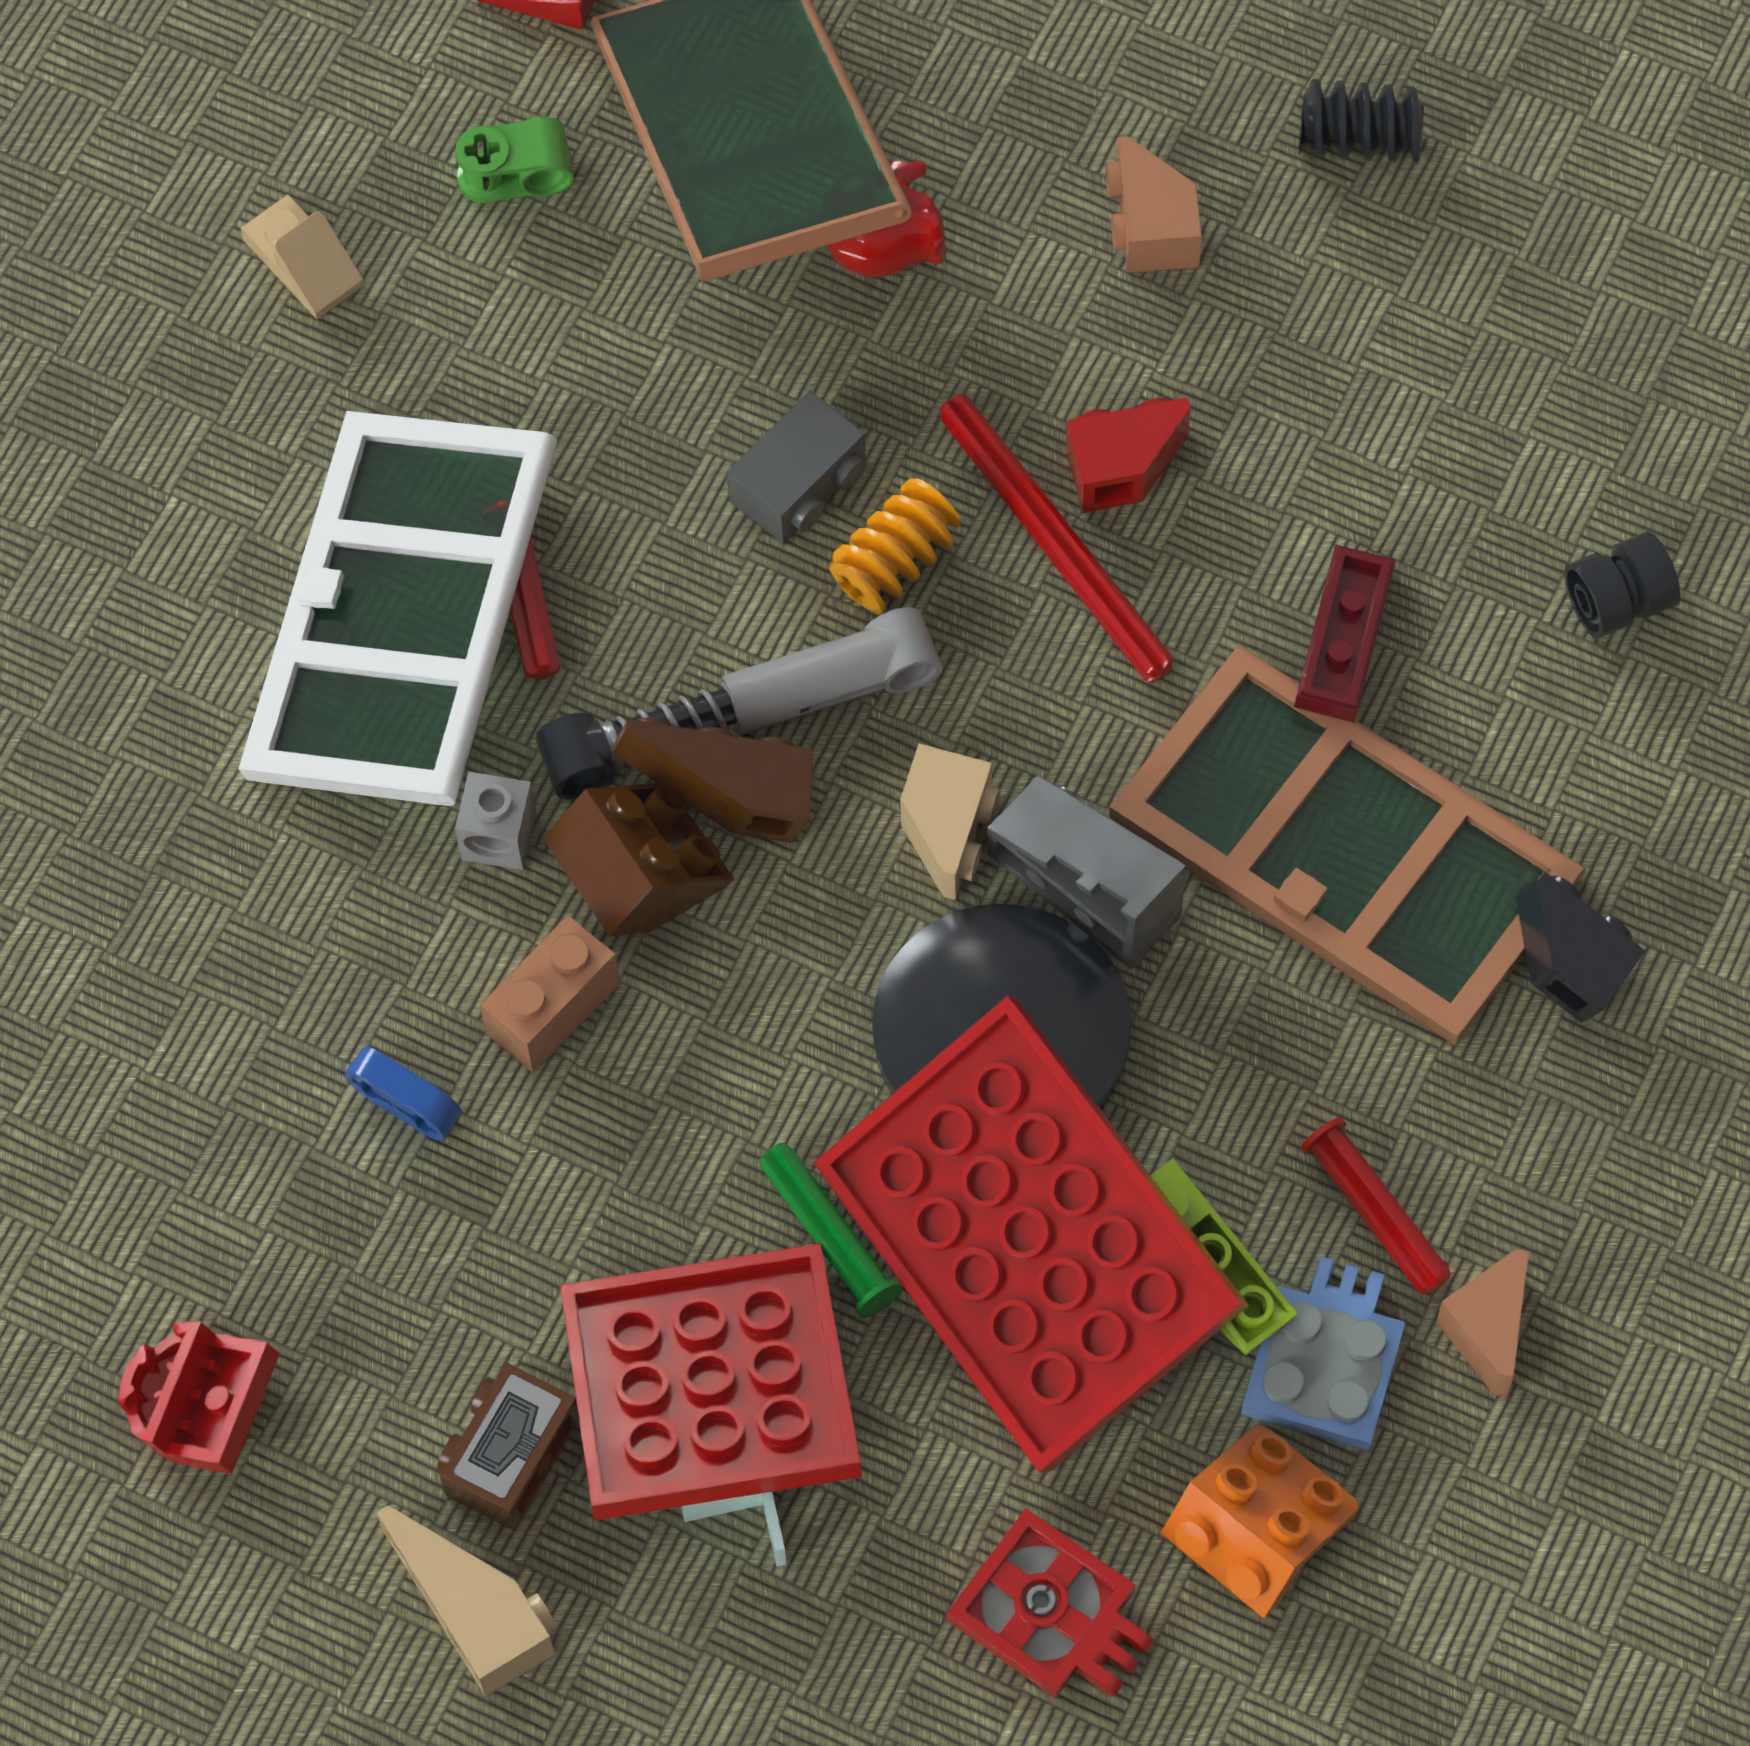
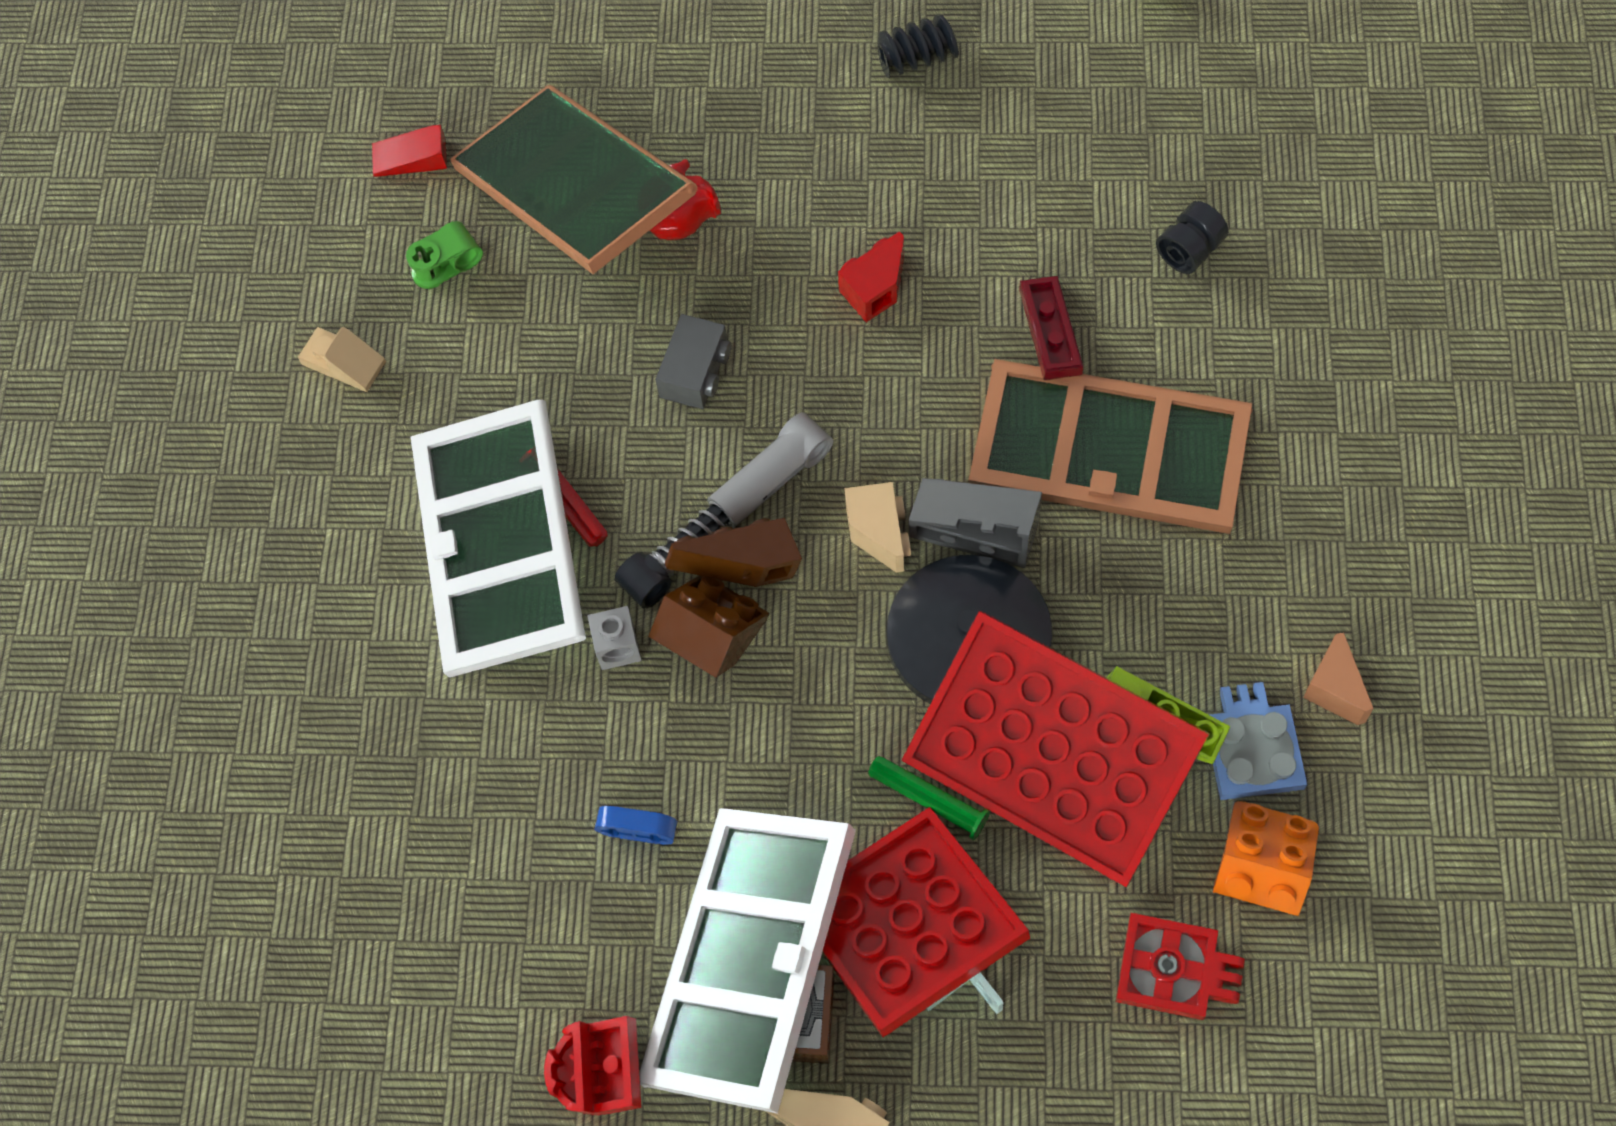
camera: 20 degrees left, 0 degrees up
(467, 1335) = (747, 959): none -> door
(550, 993) = (696, 727): nougat brick -> none
(892, 543) = (772, 381): light orange piece -> none
(1056, 538) = (860, 341): red axle -> none
(1157, 211) = (826, 138): nougat slope -> none
(1377, 1206) = (1239, 645): red axle -> none
(1572, 948) = (1272, 450): black slope -> none

